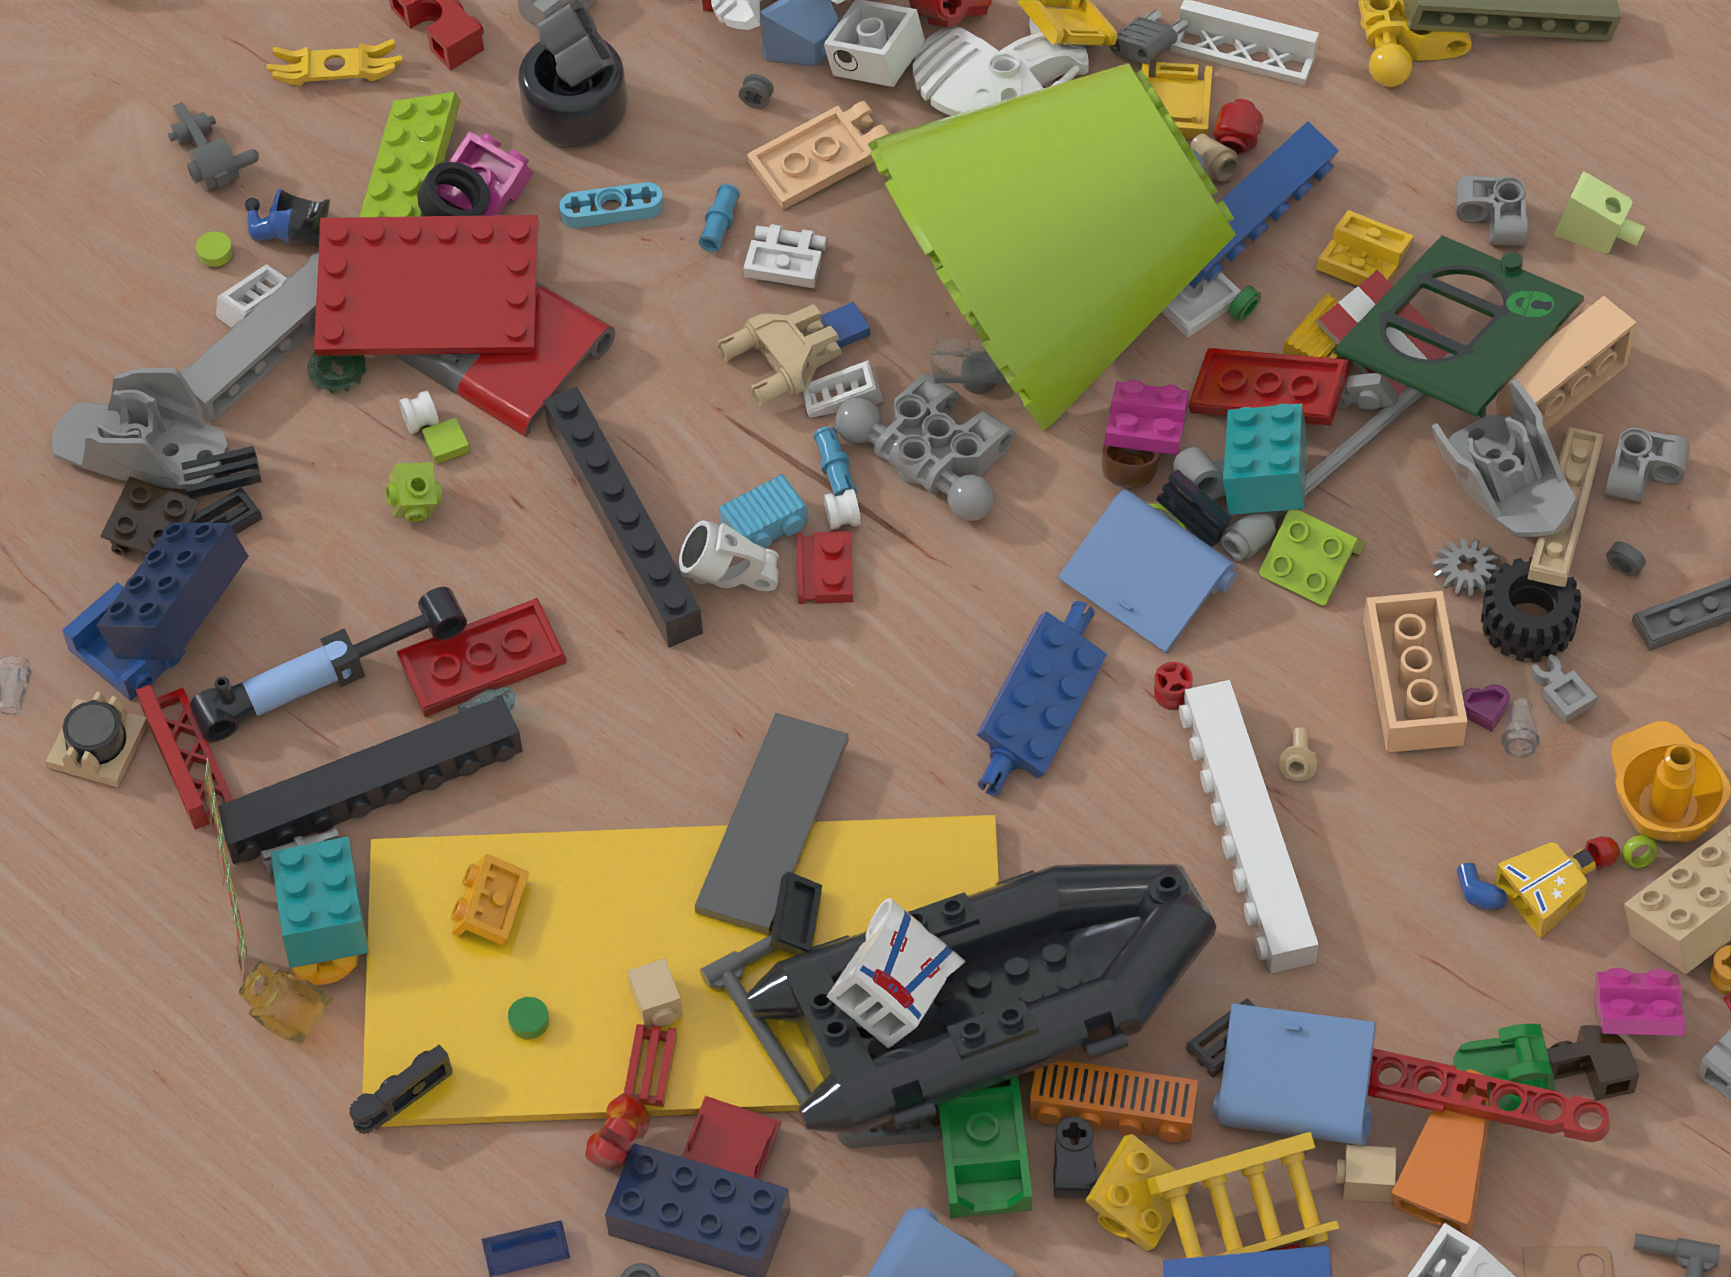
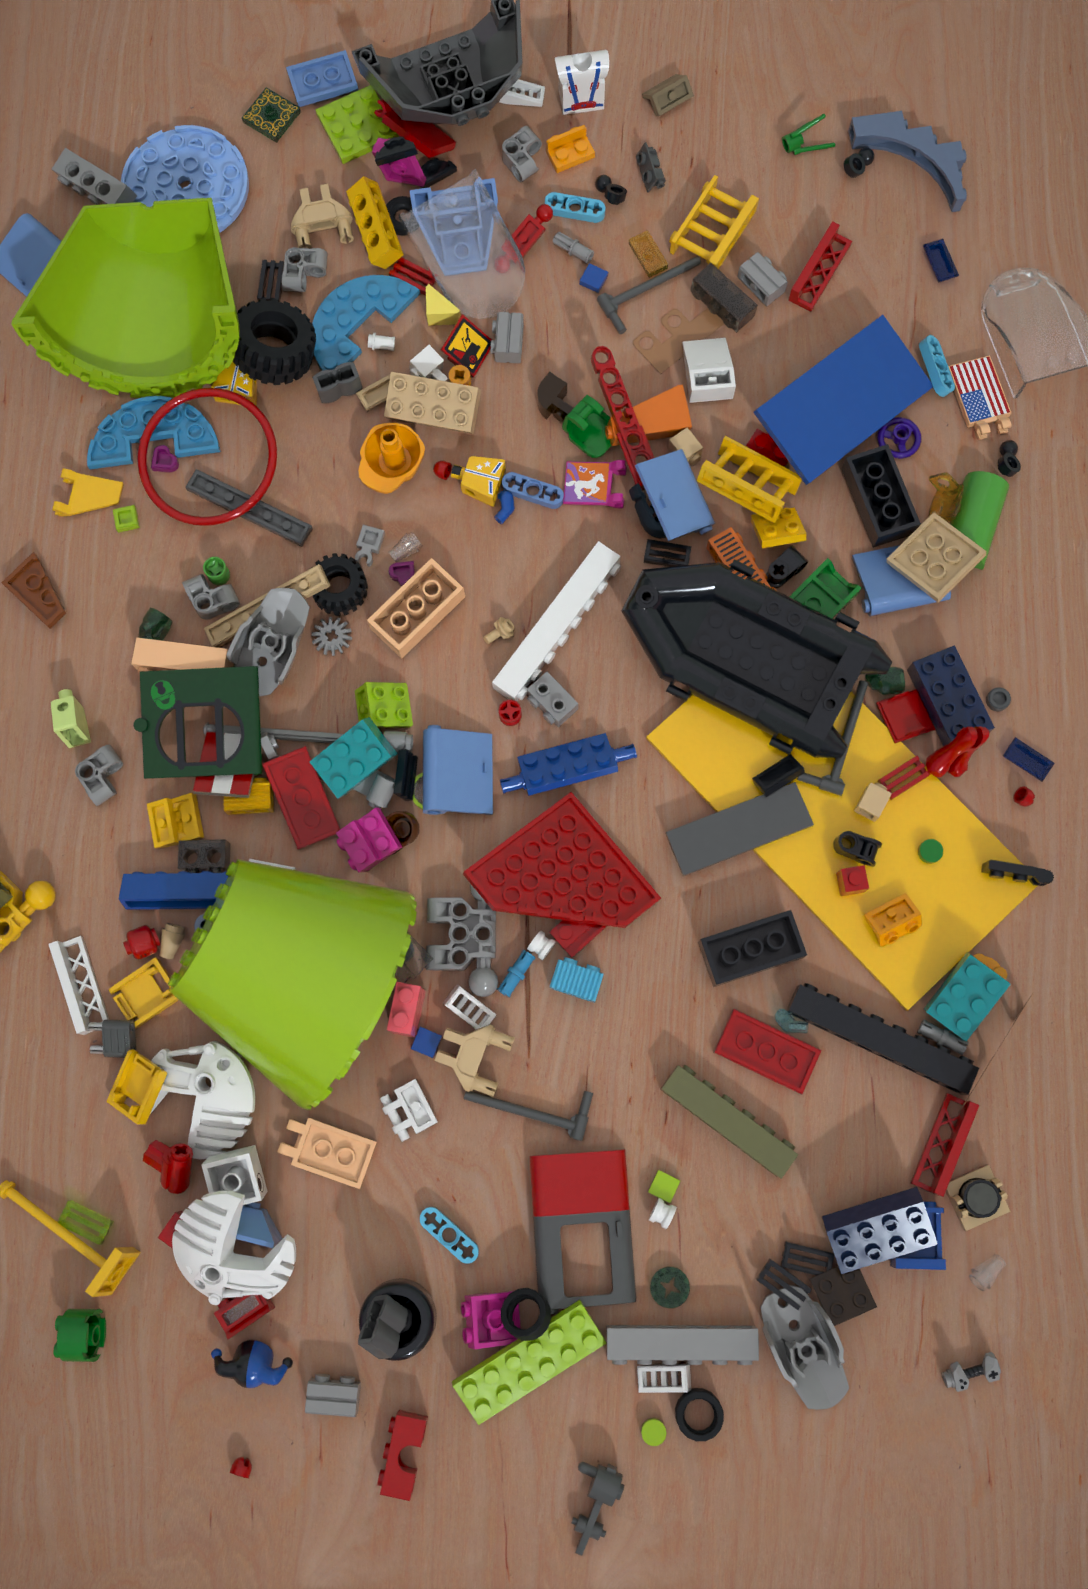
camera: 130 degrees left, 20 degrees up
(181, 277) = (713, 1429): none -> black tyre
(223, 708) = (849, 1120): black piece -> none
(286, 1005) = (1023, 965): clear yellow piece -> none
(290, 219) = (601, 1399): black piece -> none
(310, 65) = (494, 1493): yellow piece -> none
(413, 491) = (713, 1168): lime brick -> none
(427, 285) = (593, 1275): red plate -> none
(446, 550) = (730, 1122): none -> olive brick
(484, 1197) = (1024, 796): none -> red hinge
(581, 887) = (852, 880): none -> red brick
(603, 402) = (575, 1126): none -> dark grey bar
(613, 718) = (752, 948): none -> black brick
(613, 930) = (862, 848): none -> black piece
(623, 517) = (636, 1050): black brick -> none
(710, 549) = (629, 974): white piece -> none
(719, 218) = (412, 1166): dark azure pin -> none
(756, 91) = (313, 1221): dark grey bush -> none
(797, 1158) = (890, 683): none -> clear green rock
(893, 974) = (790, 680): white piece -> none
(898, 309) = (406, 1009): none -> coral brick
(906, 588) = (563, 871): none -> red plate
(1145, 742) = (552, 700): none -> light grey brick
(1244, 303) = (257, 851): green tile -> none
(1288, 248) = (205, 851): none -> clear smoke brick
(1425, 1017) = (592, 483): none -> flag
(1482, 925) = (549, 490): none -> medium blue beam
(1626, 559) = (272, 567): dark grey tile -> none
(1639, 1002) = (513, 396): dark pink plate -> none
(1646, 859) = (431, 454): lime piece -> none
(1652, 383) = (154, 625): none -> clear green rock
(1674, 494) = (214, 566): none -> bright green wheel

